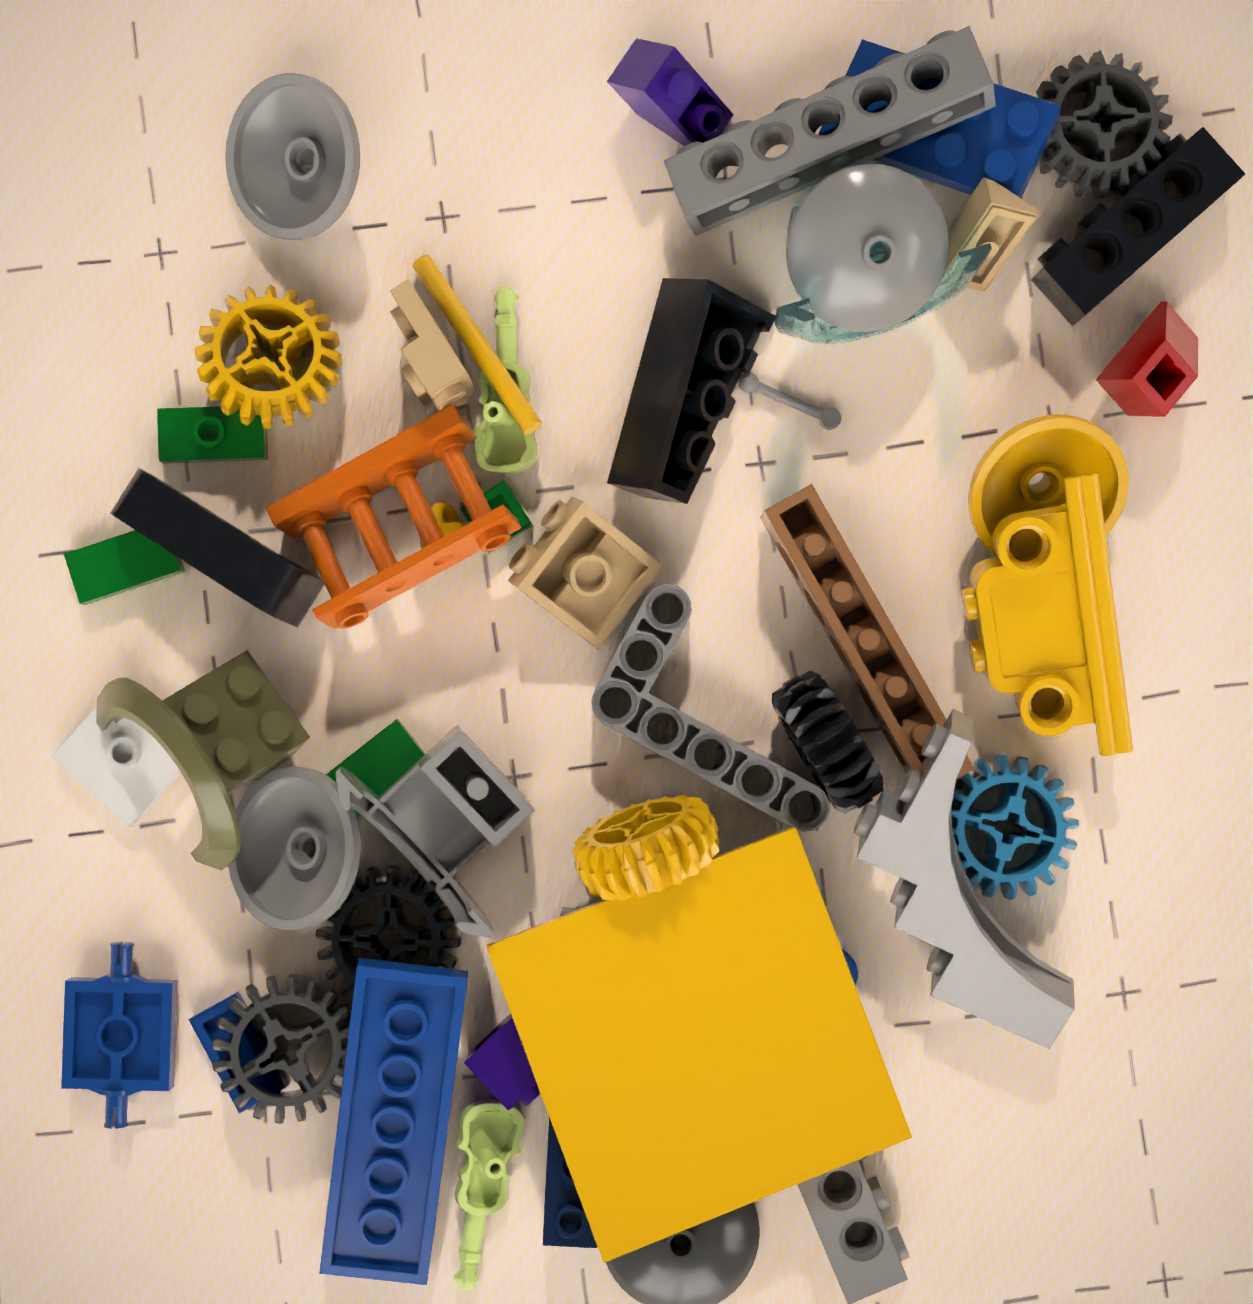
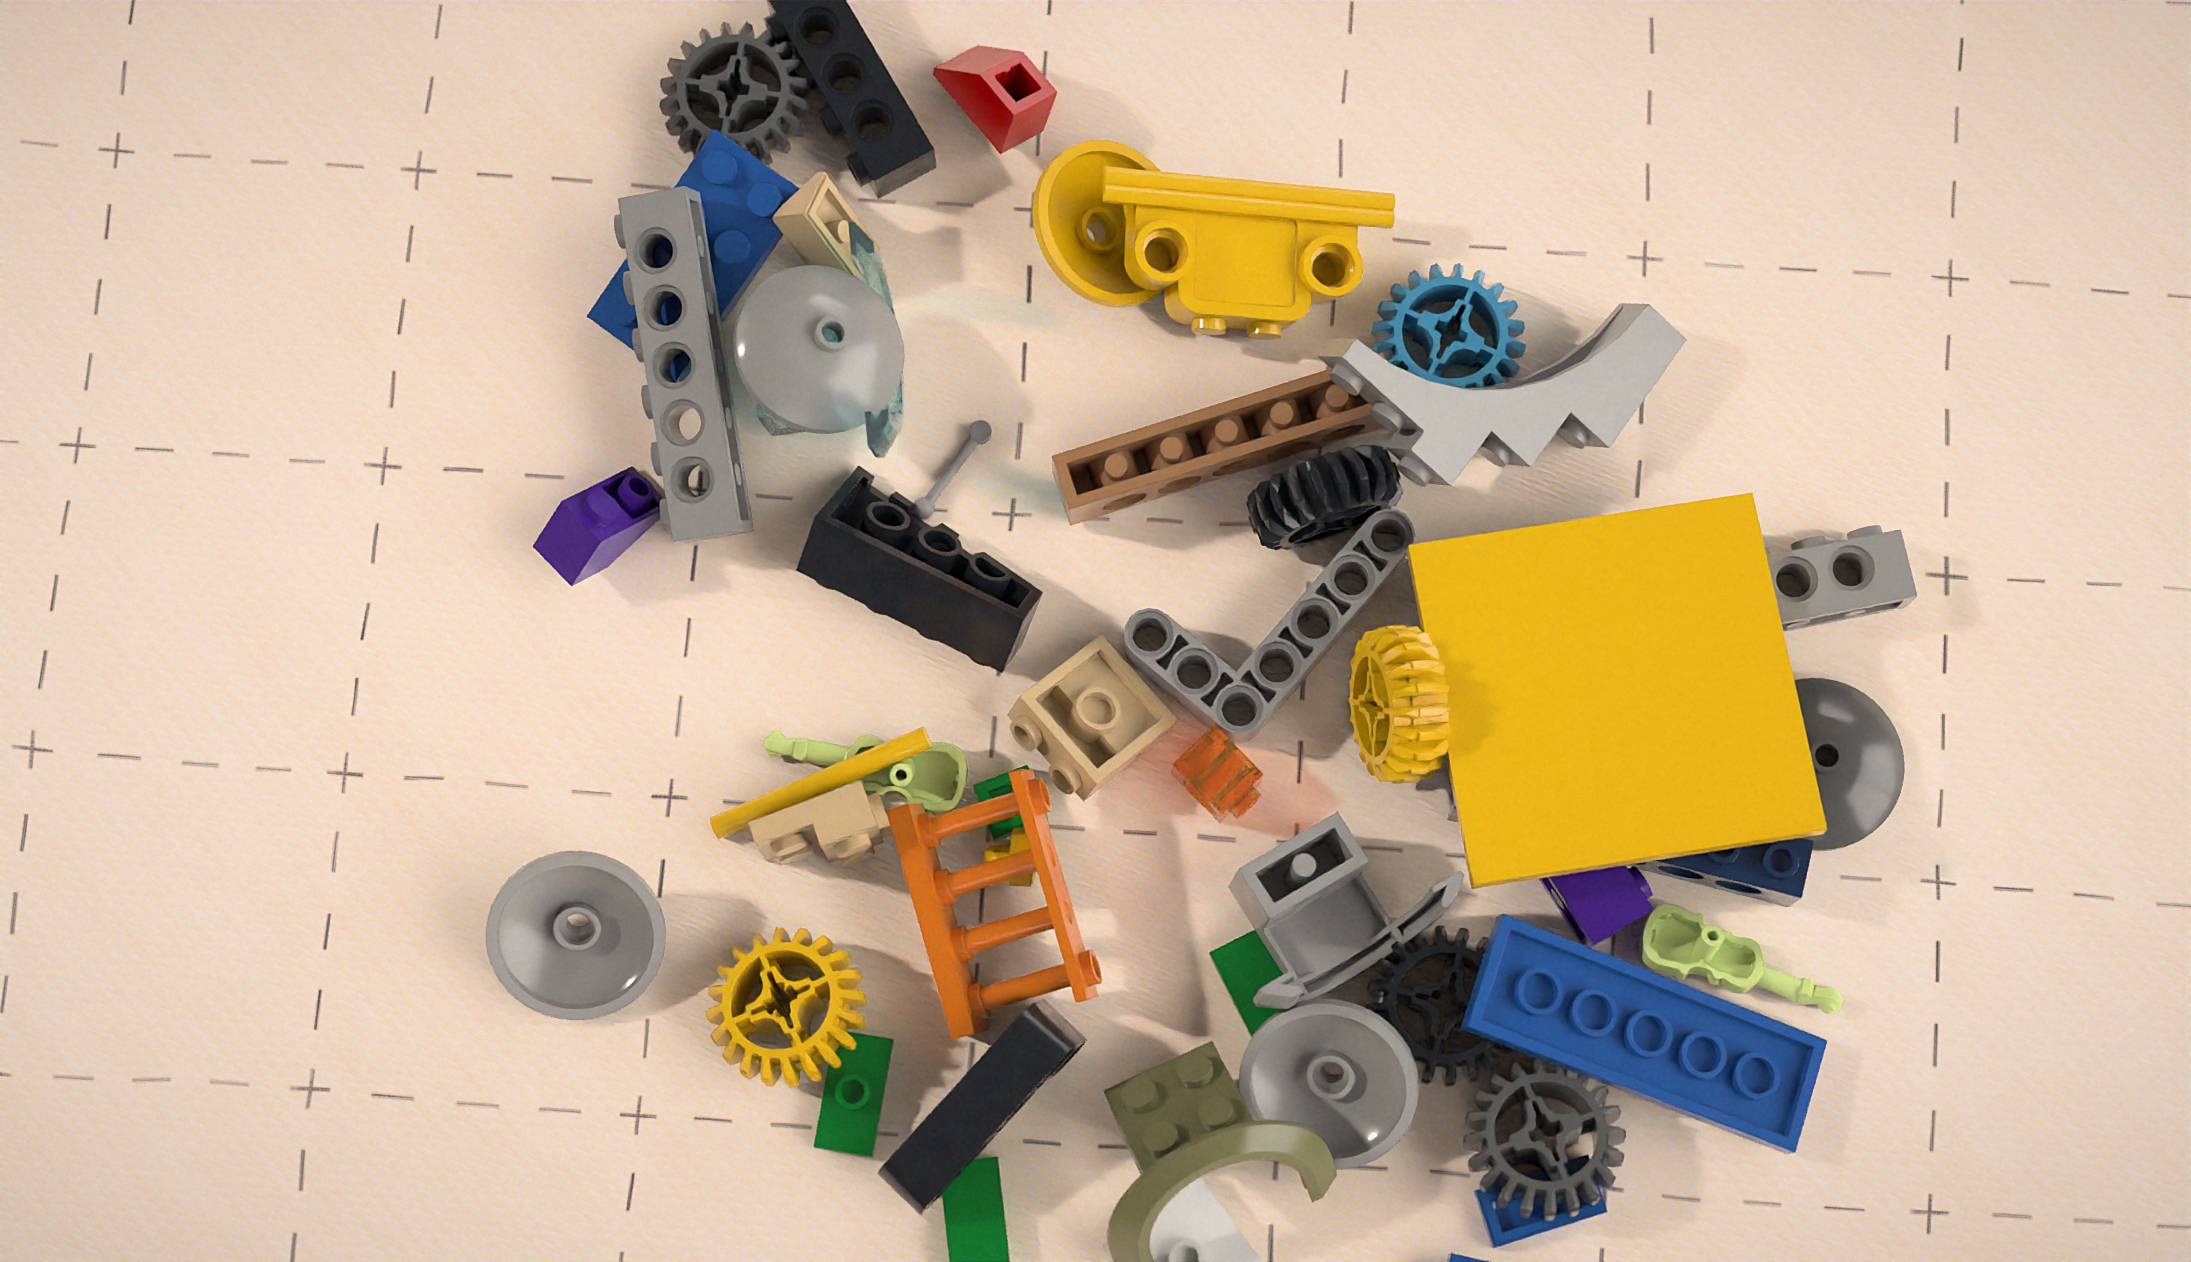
camera: 80 degrees left, 10 degrees down
(554, 697) = (1218, 775): none -> clear orange brick

